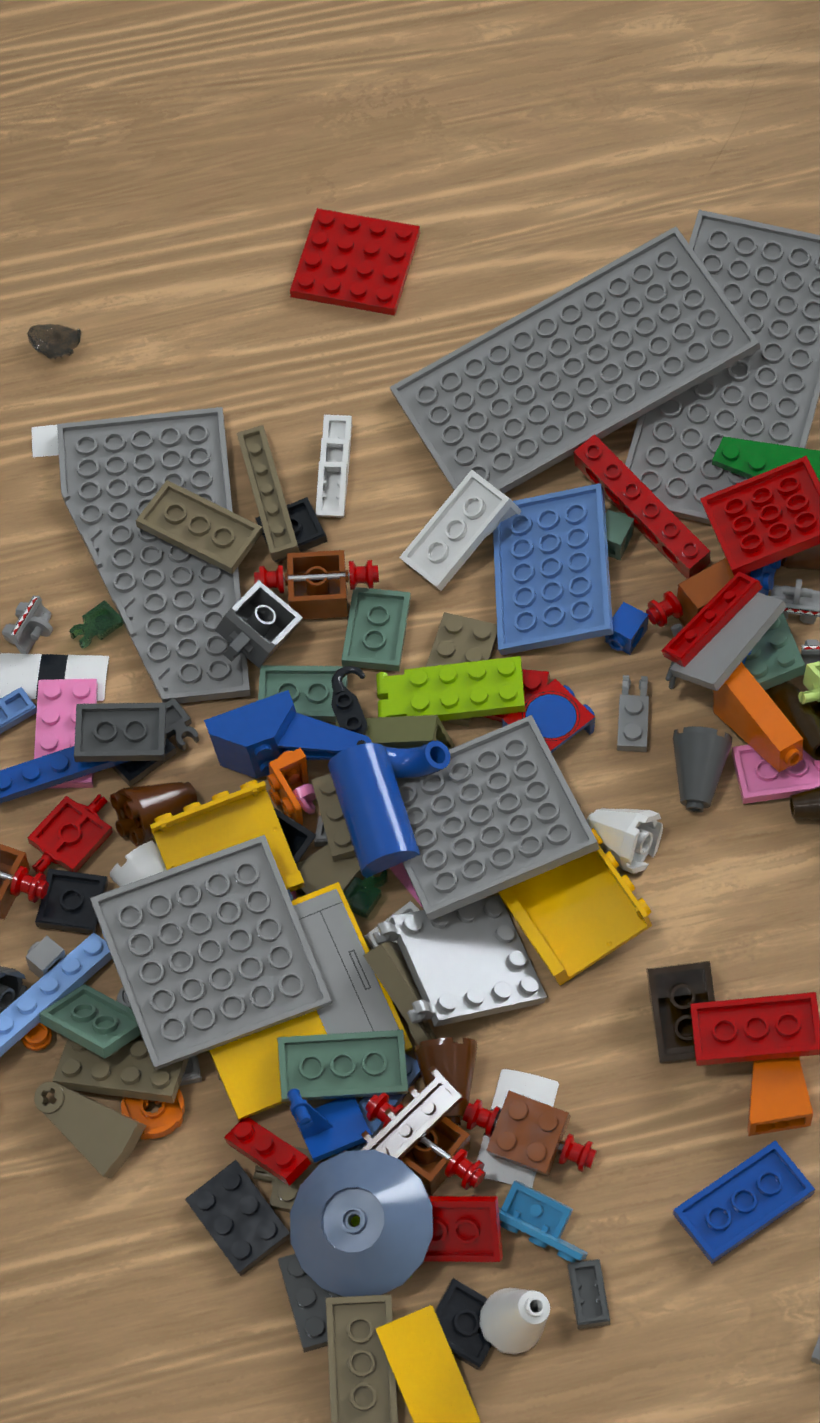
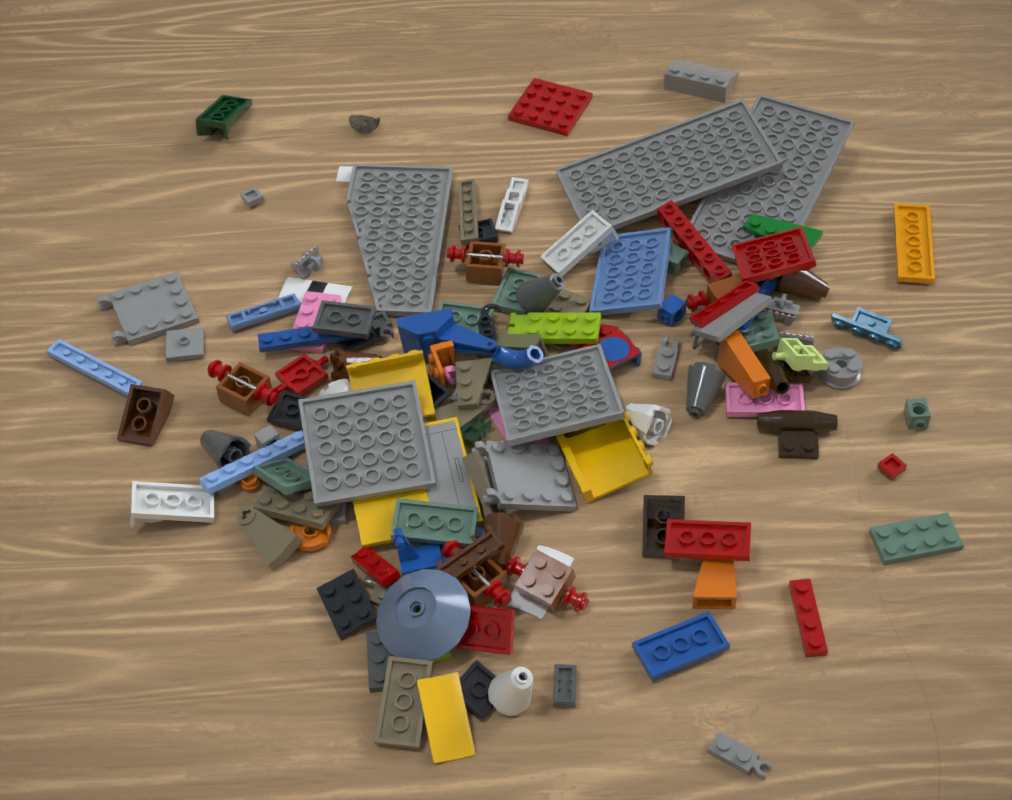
camera: 10 degrees right, 10 degrees down
(98, 621) = (349, 266): clear green plate -> none
(199, 526) = (422, 223): dark tan plate -> none
(257, 625) = (443, 276): dark grey hinge -> none
(372, 808) = (487, 377): blue brick -> none
(416, 633) = (539, 292): none -> dark grey cone
(540, 1218) = (543, 634): dark azure bracket -> none
(591, 174) = (699, 80): none -> light grey slope

